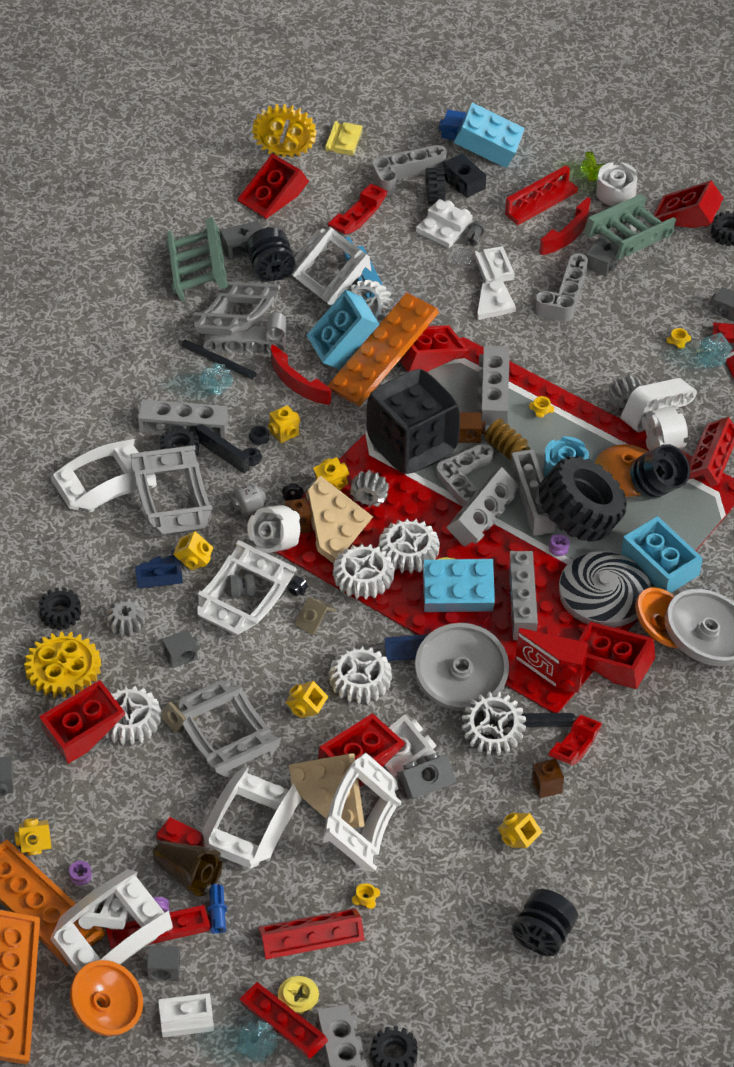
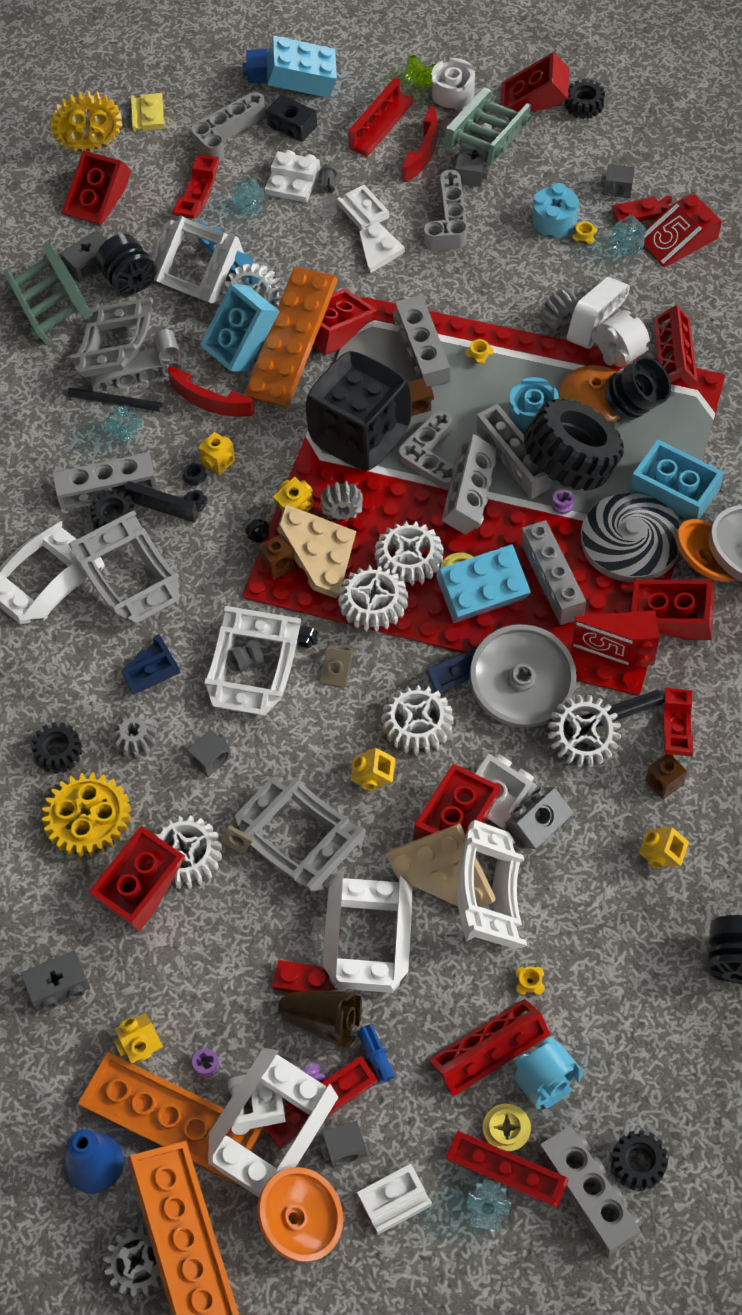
camera: 15 degrees left, 10 degrees up
(193, 551) = (178, 632): yellow brick -> none
(248, 498) = (214, 552): light grey head -> none
(274, 528) = (260, 581): white brick -> none
(346, 962) = (547, 1073): none -> medium azure brick
(398, 230) = (248, 197): none -> clear light blue brick
(435, 184) = (267, 137): black tyre -> none
(505, 439) = (460, 402): pearl gold piece -> none
(659, 312) = (555, 210): none -> medium azure brick

